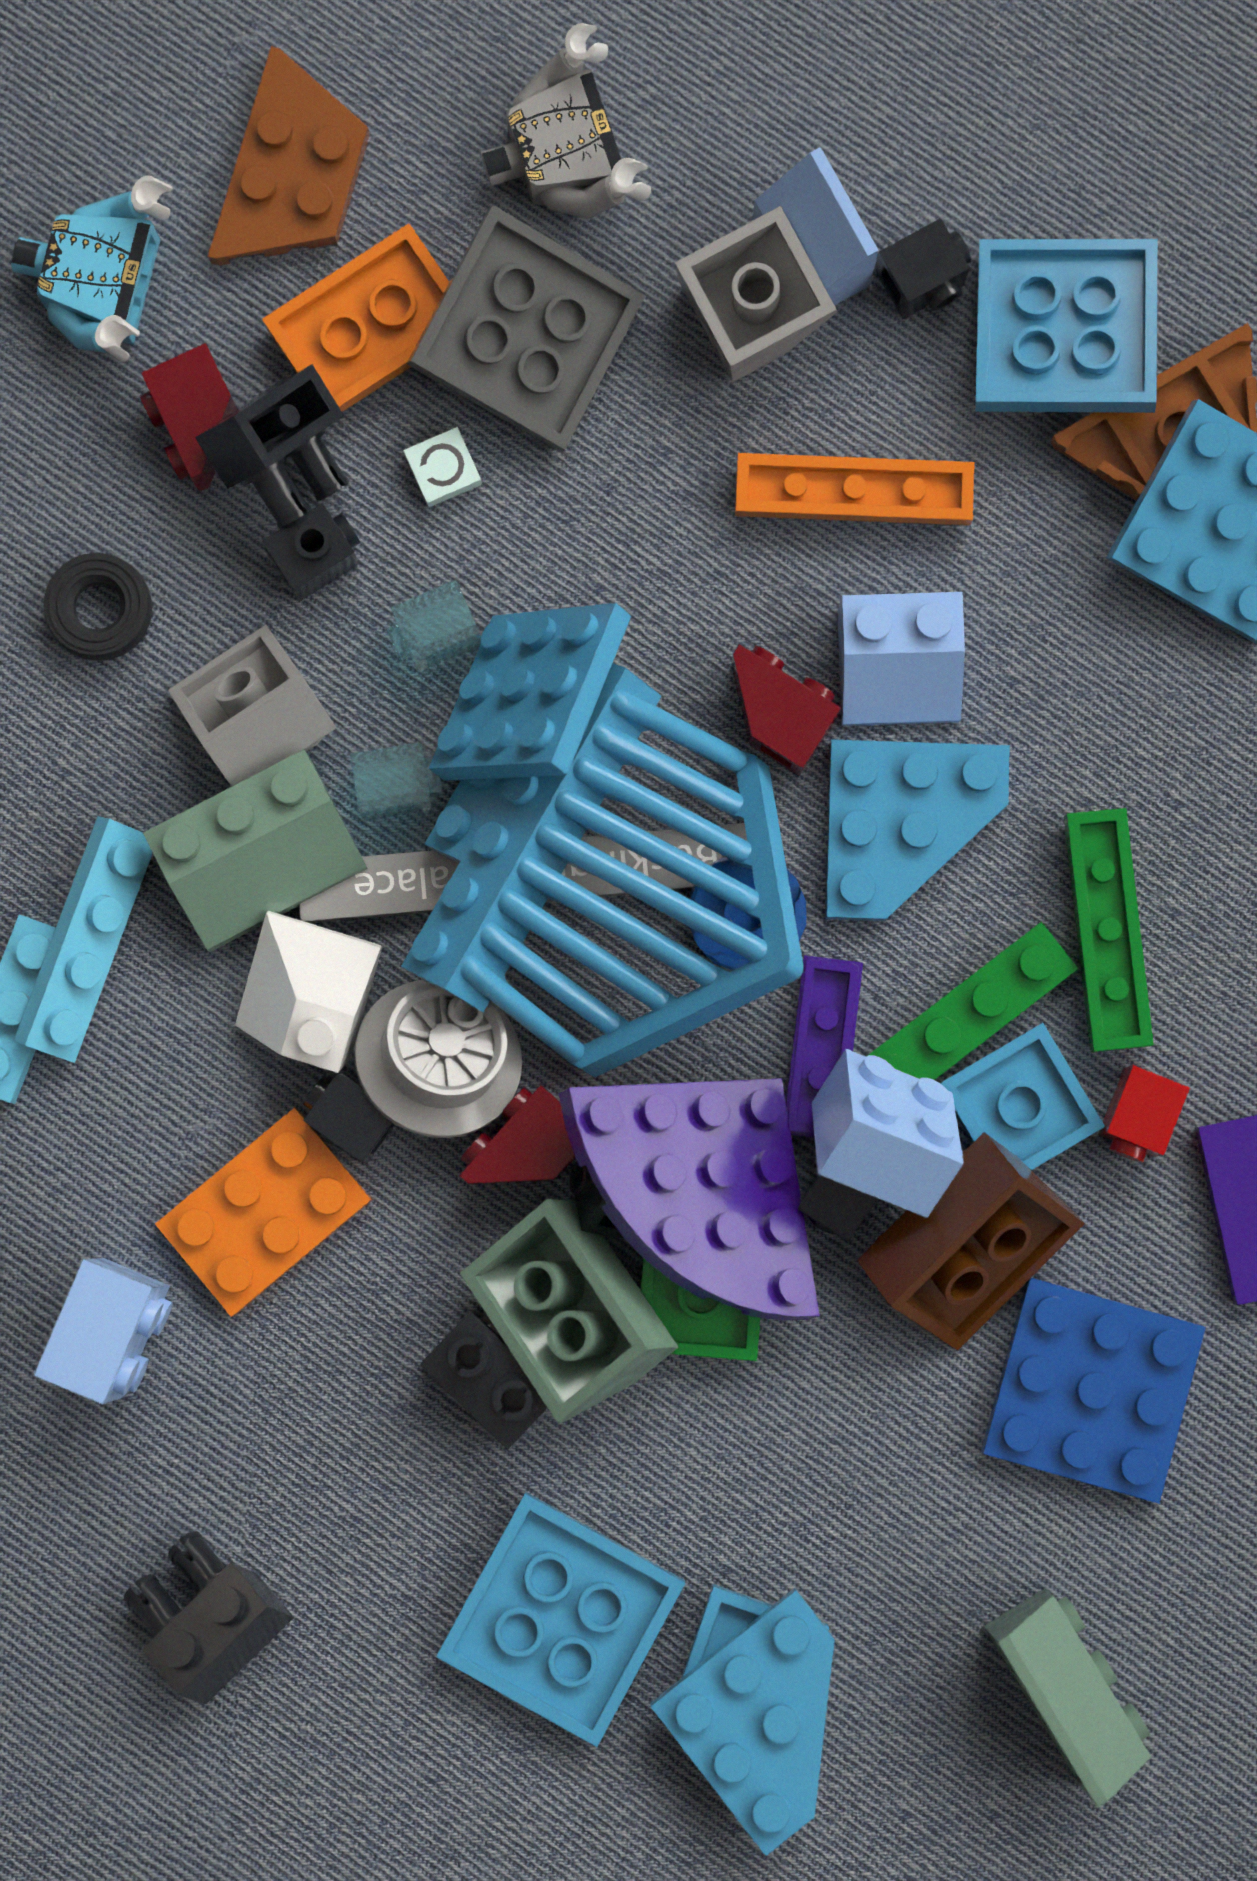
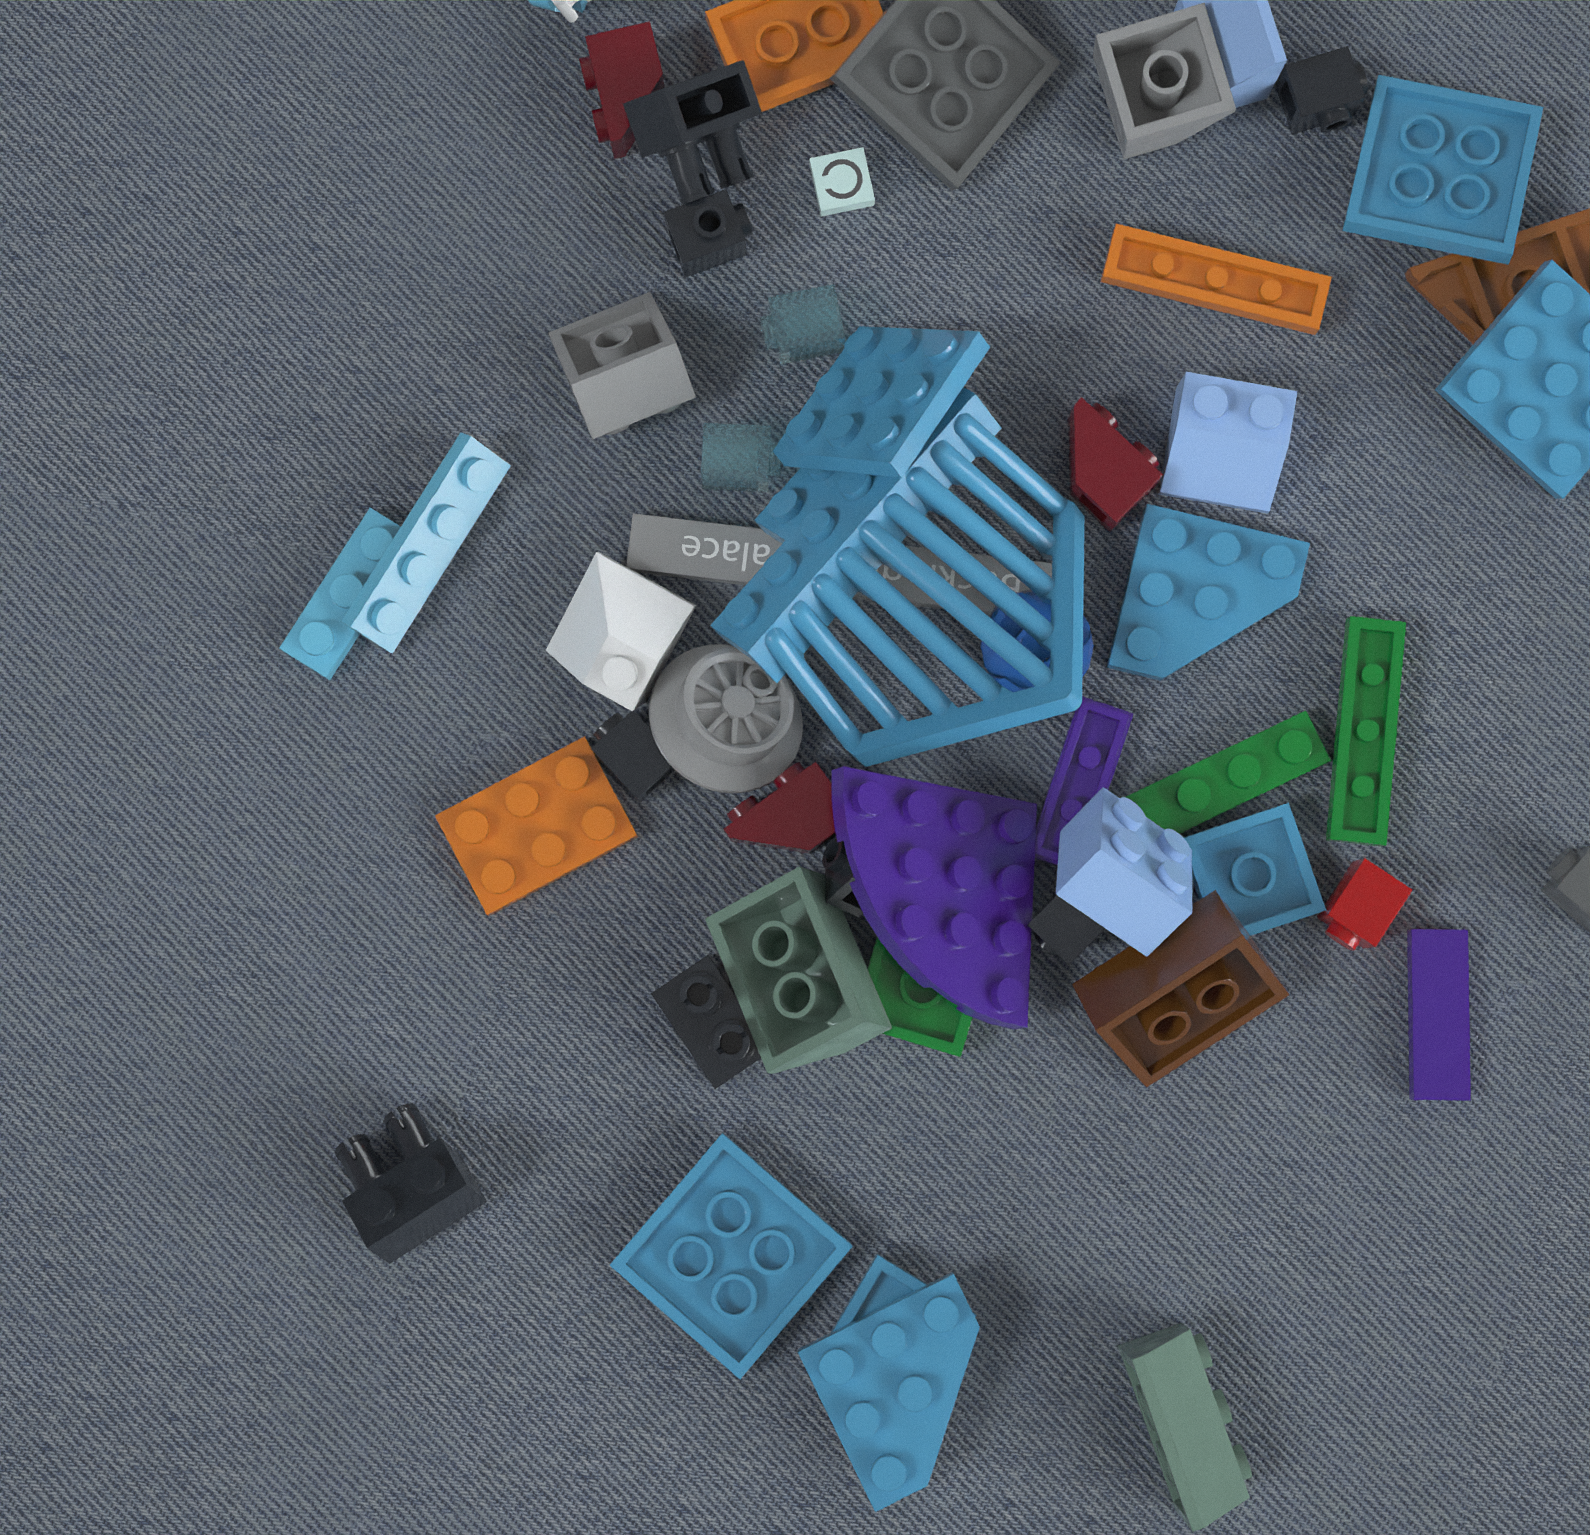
camera: 10 degrees right, 0 degrees up
(85, 572) = (492, 210): black tyre -> none
(104, 1331) = (369, 902): light blue brick -> none
(255, 850) = (598, 493): sand green slope -> none
(1093, 1390) = (1264, 1150): blue plate -> none

